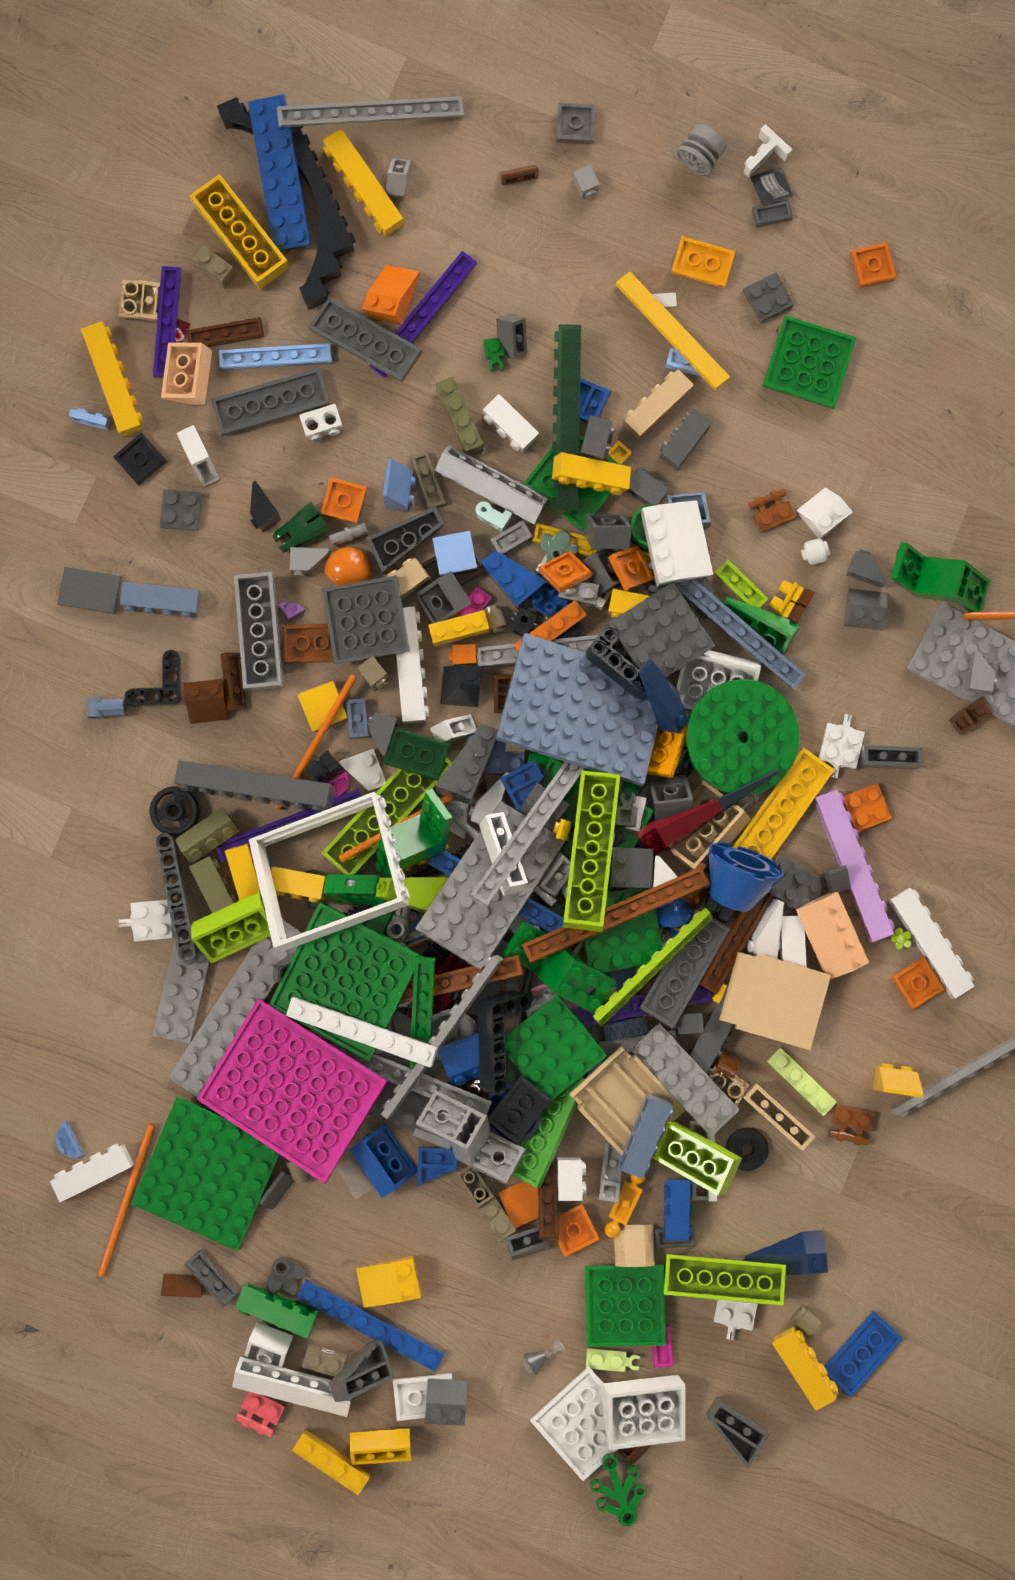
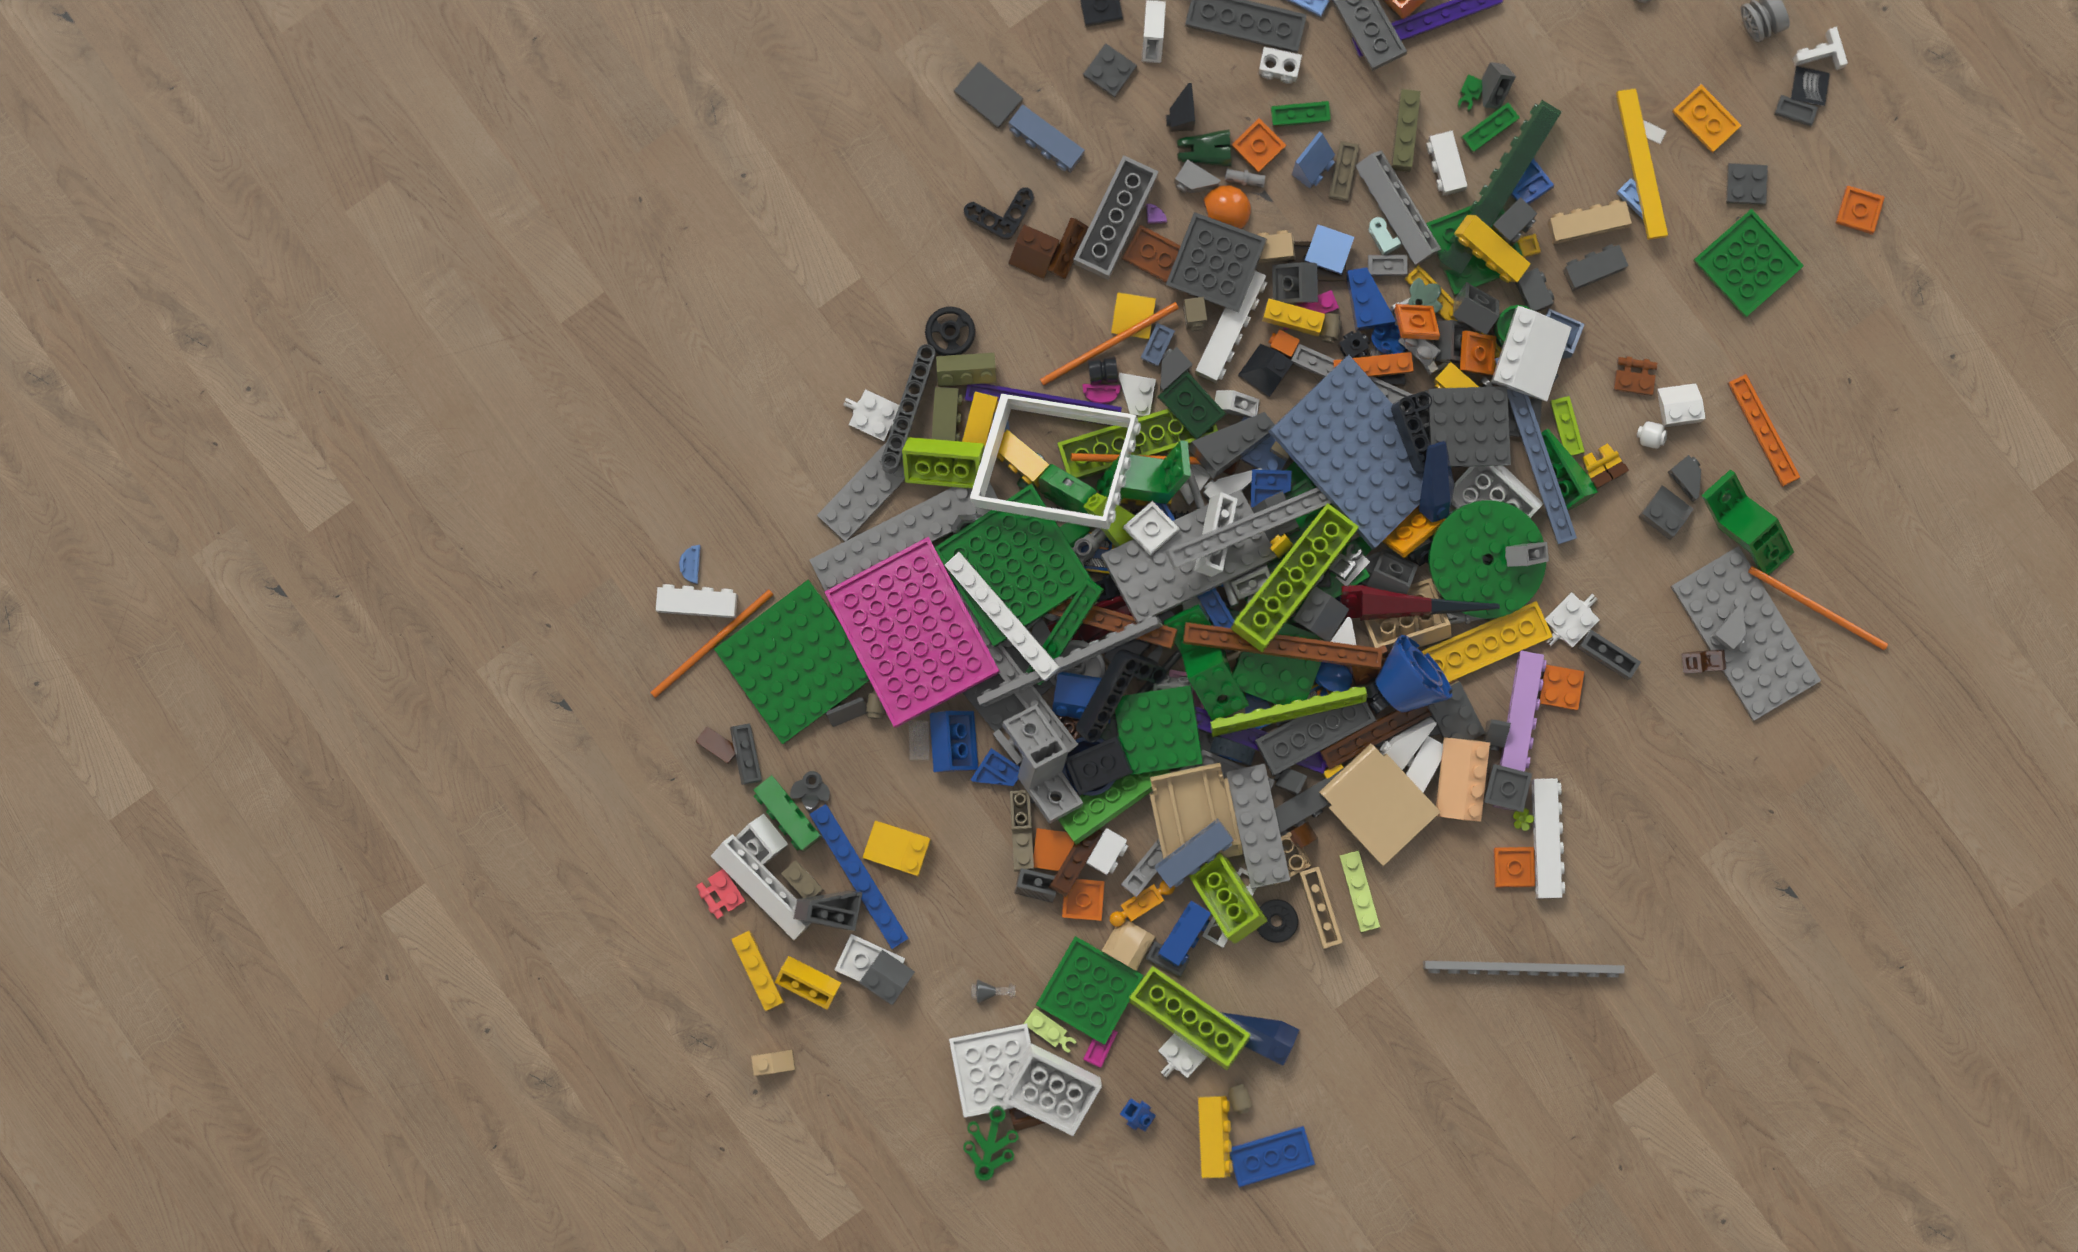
camera: 35 degrees right, 0 degrees up
(100, 707) = (938, 203): sand blue piece -> none
(254, 785) = (1034, 350): dark grey brick -> none
(363, 453) = (1300, 113): none -> green plate
(390, 1534) = (773, 1062): none -> tan slope
(400, 539) = (1287, 209): dark grey wedge -> none
(444, 880) = (1151, 528): none -> white tile
(500, 693) = (1304, 381): reddish brown slope -> none
(528, 373) = (1490, 127): none -> green plate
(729, 1389) = (1137, 1114): none -> blue brick
(738, 1430) = (1124, 1155): dark grey wedge -> none
(774, 714) = (1527, 554): none -> light grey slope
(851, 1118) = (1385, 950): dark orange plate -> none
(875, 921) = (1508, 788): none -> dark grey plate
(897, 1081) = (1443, 939): yellow slope -> none
(904, 493) = (1764, 430): none -> orange tile

